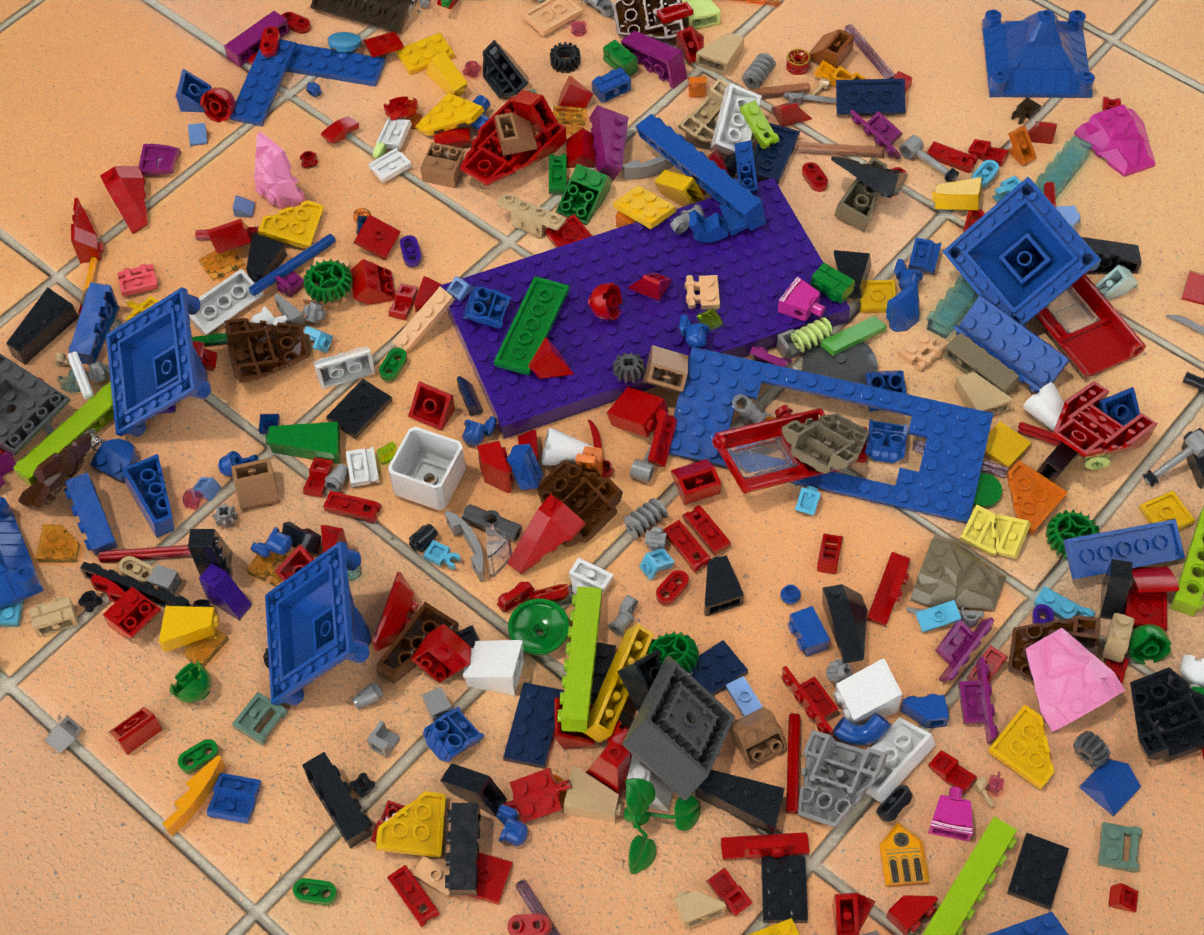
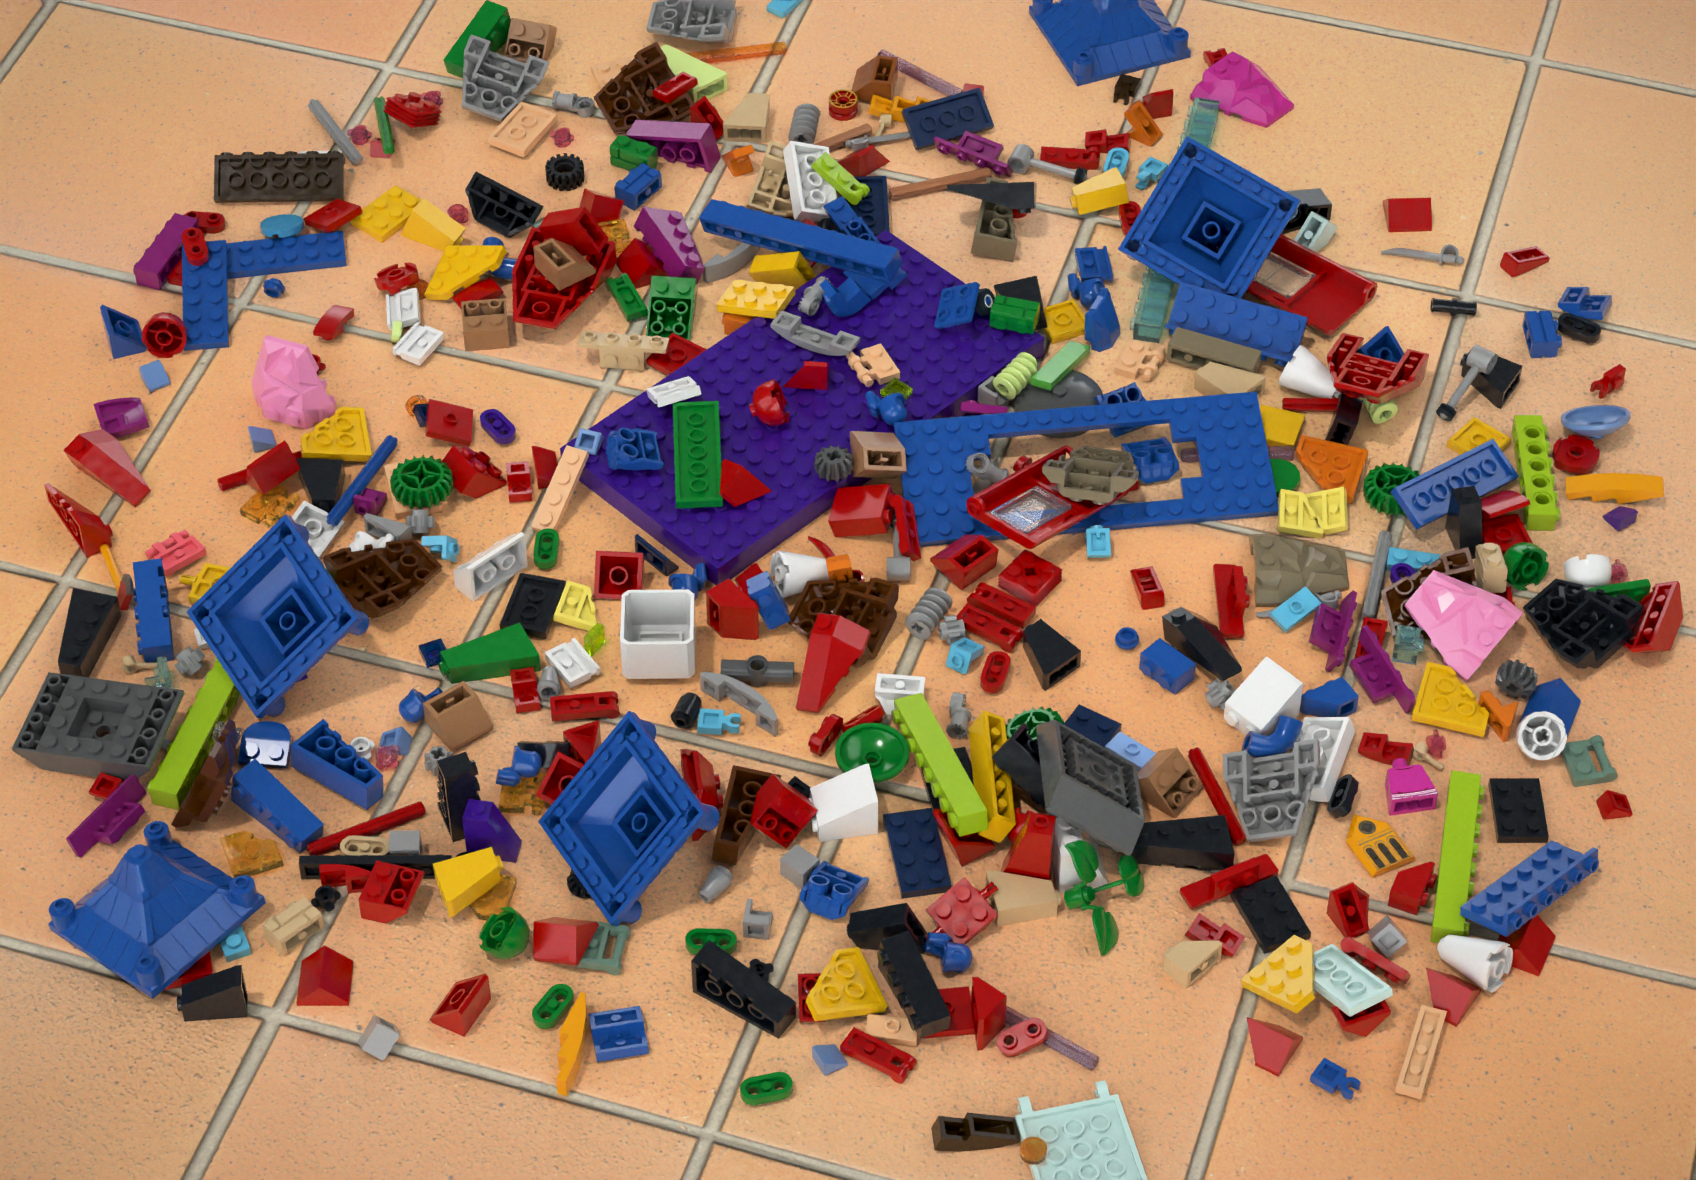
camera: 25 degrees left, 10 degrees down
(55, 670) = (325, 979): none -> red slope
(80, 375) = (175, 667): white axle -> none
(175, 482) = (363, 747): none -> white plate
(232, 701) = (562, 940): none -> red slope
(341, 745) = (717, 936): none -> green plate
(376, 882) = (828, 1058): none -> medium blue slope
(389, 421) = (576, 607): none -> light yellow wing
(498, 549) = (780, 689): clear slope -> none
(507, 897) = (988, 1011): none -> red slope
(540, 267) = (673, 391): none -> white plate
(667, 253) = (812, 339): none -> light grey slope
(730, 515) = (1030, 577): none -> red brick
(792, 260) = (961, 302): none -> blue plate
(800, 301) = (990, 342): dark pink torso -> none
(813, 173) = (926, 219): red plate -> none
(814, 698) = (1204, 727): red bracket -> none
(1015, 682) = (1407, 644): none -> clear light blue brick
(1021, 608) = (1376, 575): none -> light grey axle
(1062, 779) = (1500, 717): none -> orange slope
(1086, 812) = (1541, 735): none -> white cylinder

